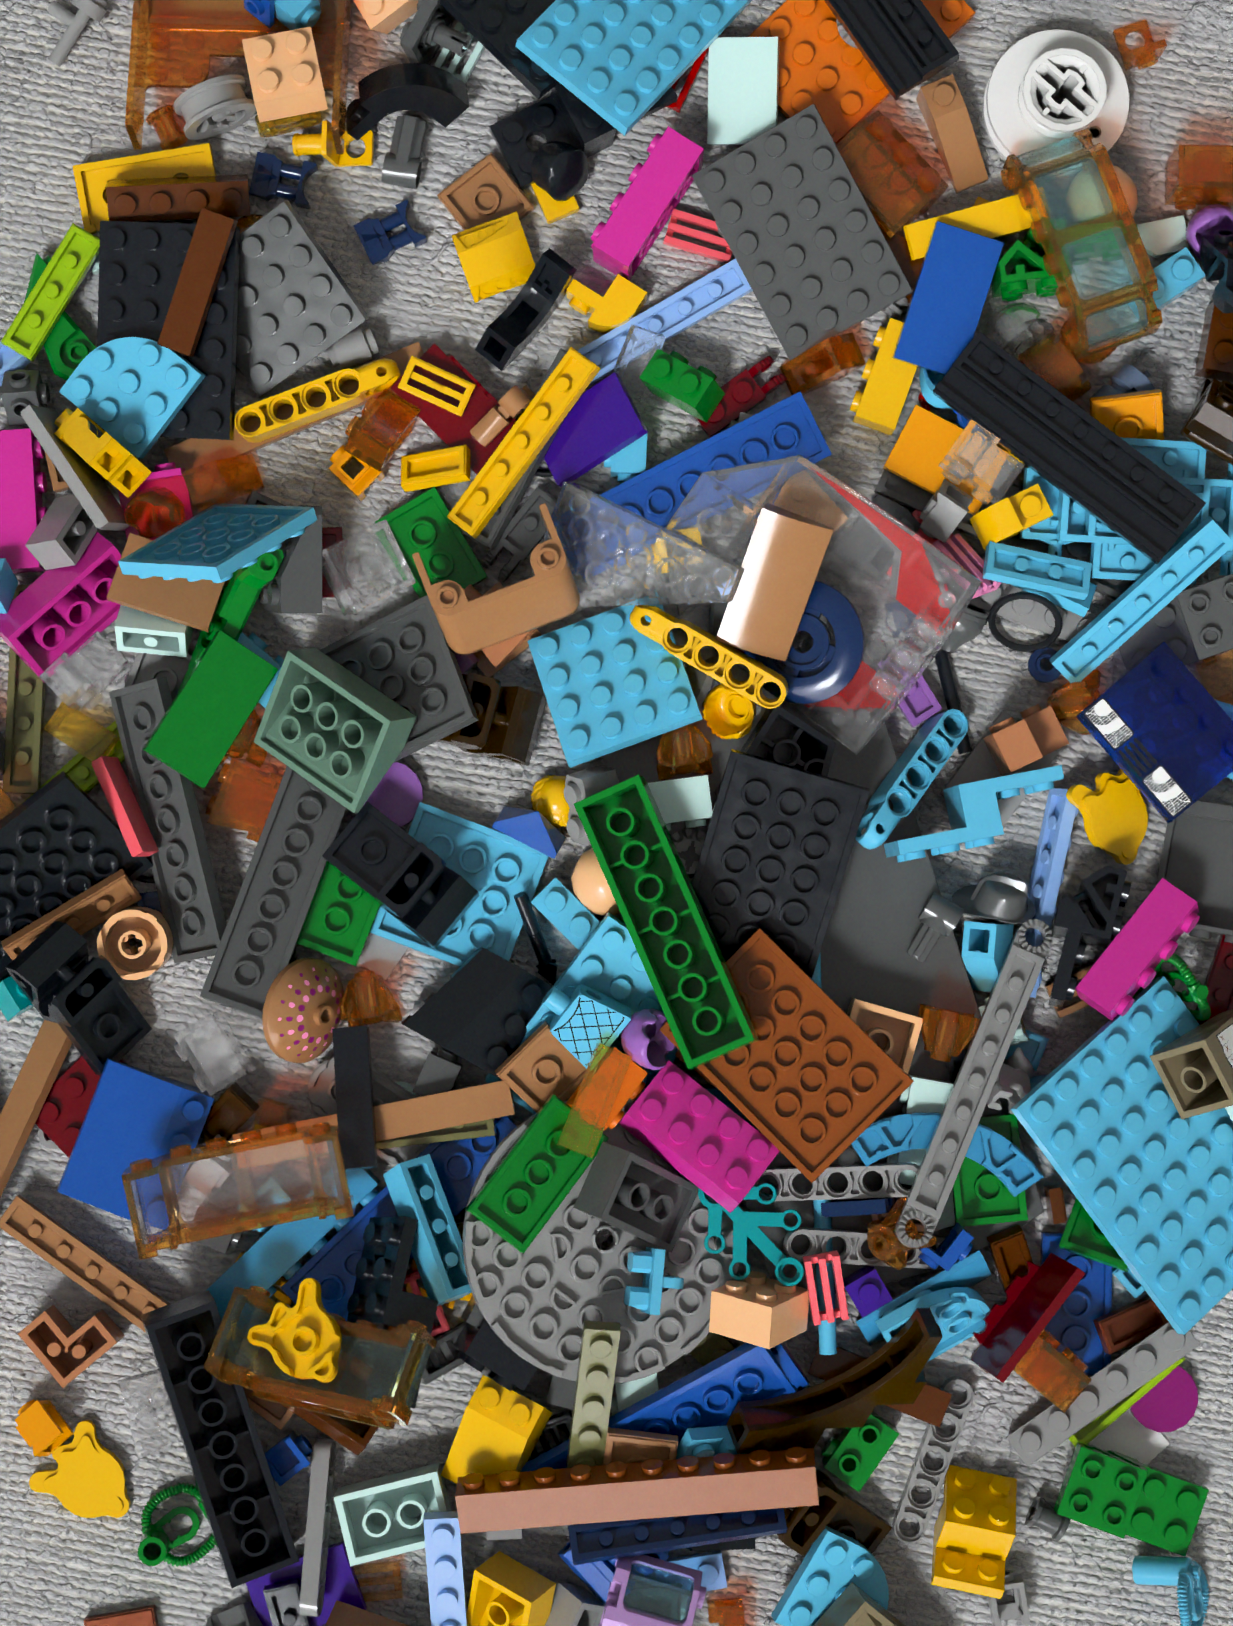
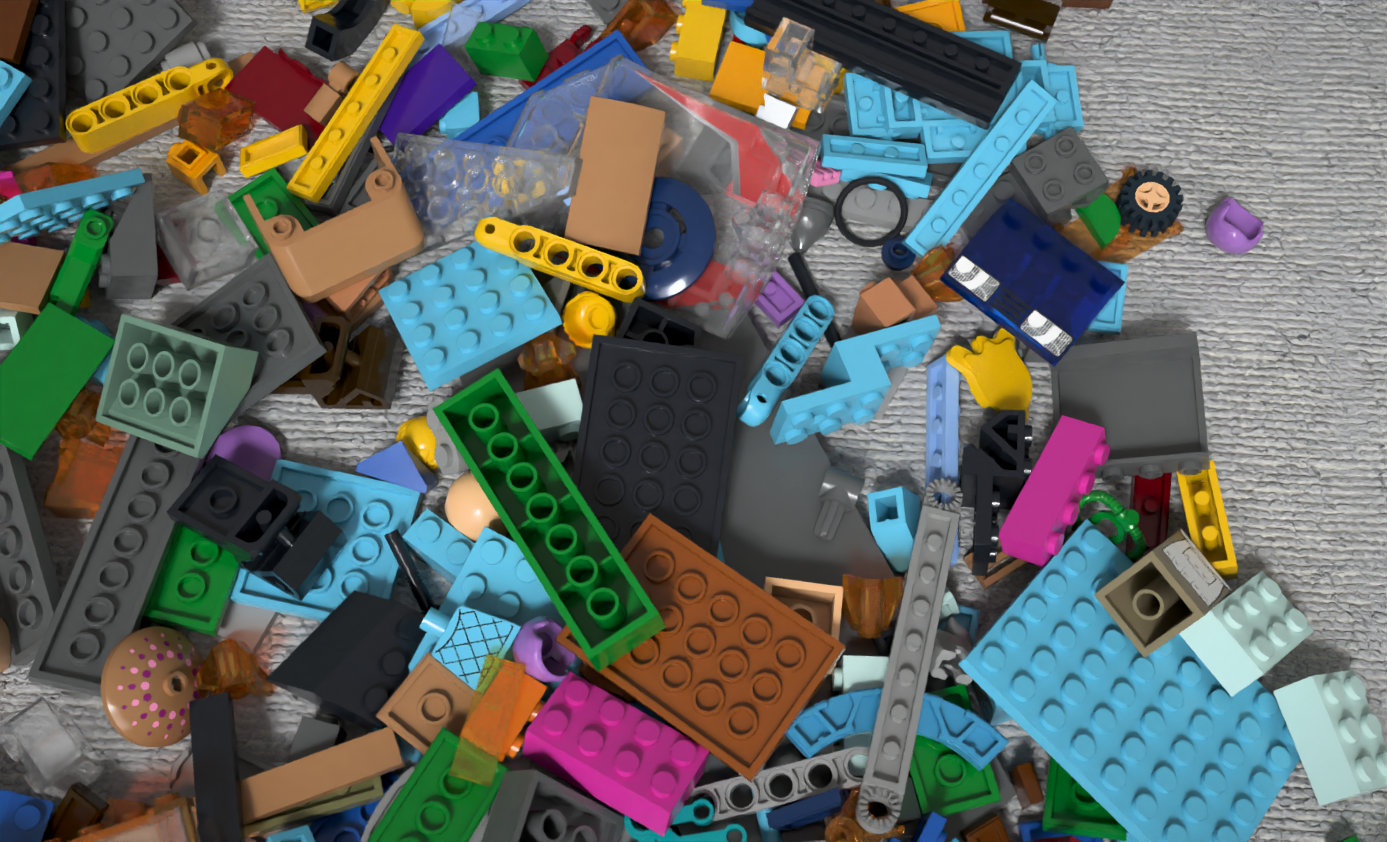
camera: 20 degrees left, 20 degrees down
(463, 398) = (288, 97): yellow tile -> none
(997, 897) = (899, 464): dark grey piece -> none
(1011, 516) = (838, 112): yellow brick -> none

